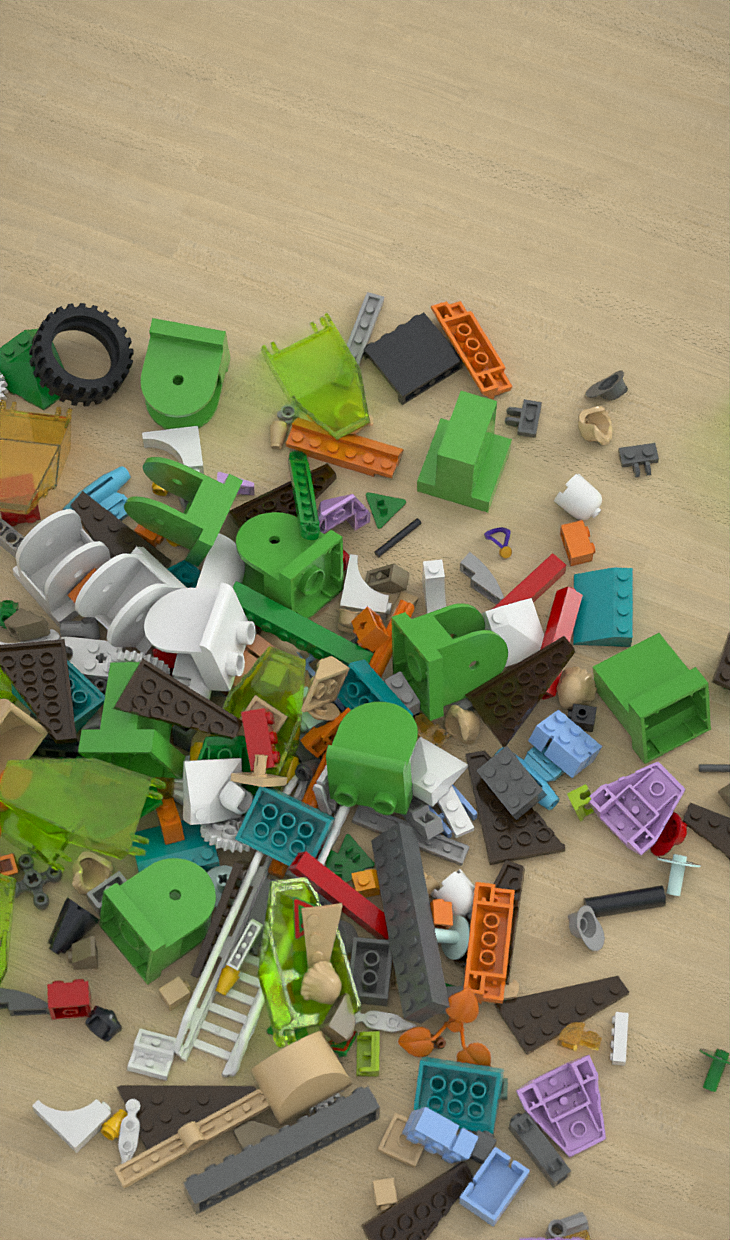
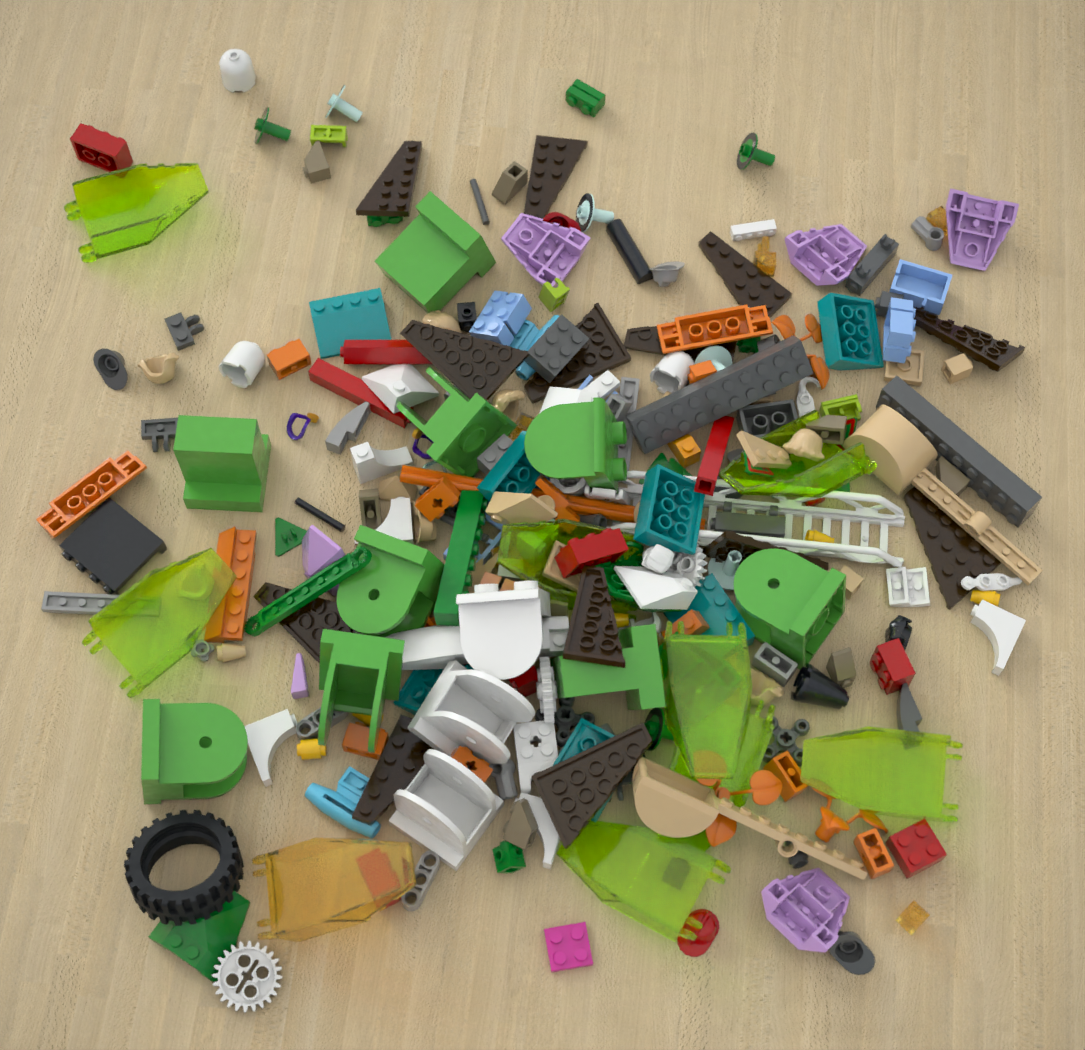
camera: 105 degrees left, 0 degrees up
(245, 944) = (788, 523): white piece -> none
(259, 776) = (637, 537): tan tile -> none

